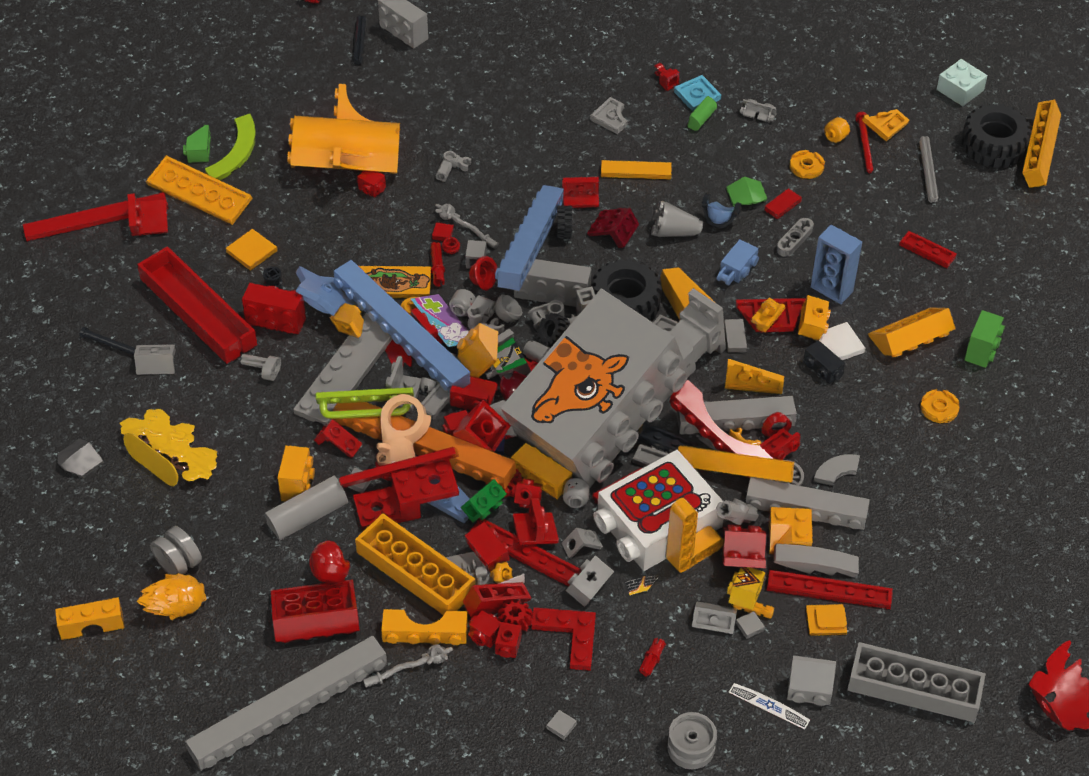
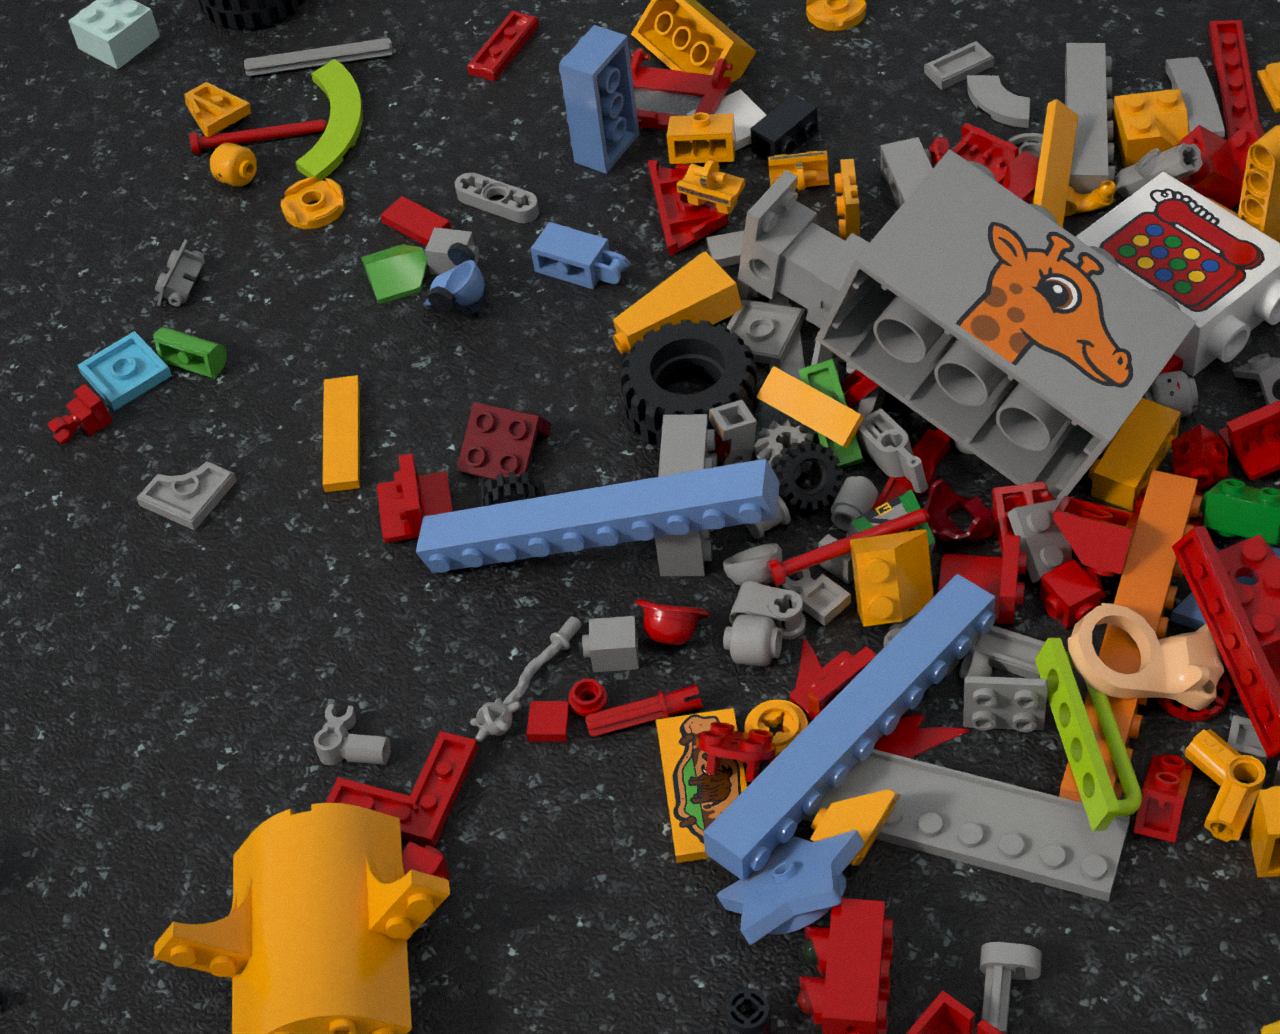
camera: 90 degrees left, 0 degrees up
(335, 464) = (1226, 767): none -> light orange piece
(399, 282) = (726, 743): none -> red plate
(406, 185) = (433, 796): none -> red plate
(440, 315) = (793, 673): sticker -> none
(492, 309) = (835, 549): none -> red bar
(674, 222) = (491, 352): light grey cone -> none
(739, 488) = (1093, 201): none -> light orange piece
(751, 213) = (438, 247): none -> light grey brick
(786, 362) = (808, 166): none -> light orange hips
(862, 313) = (675, 93): none -> red piece
(871, 178) = (343, 124): none -> lime tile
(874, 456) = (958, 64): none -> light grey tile

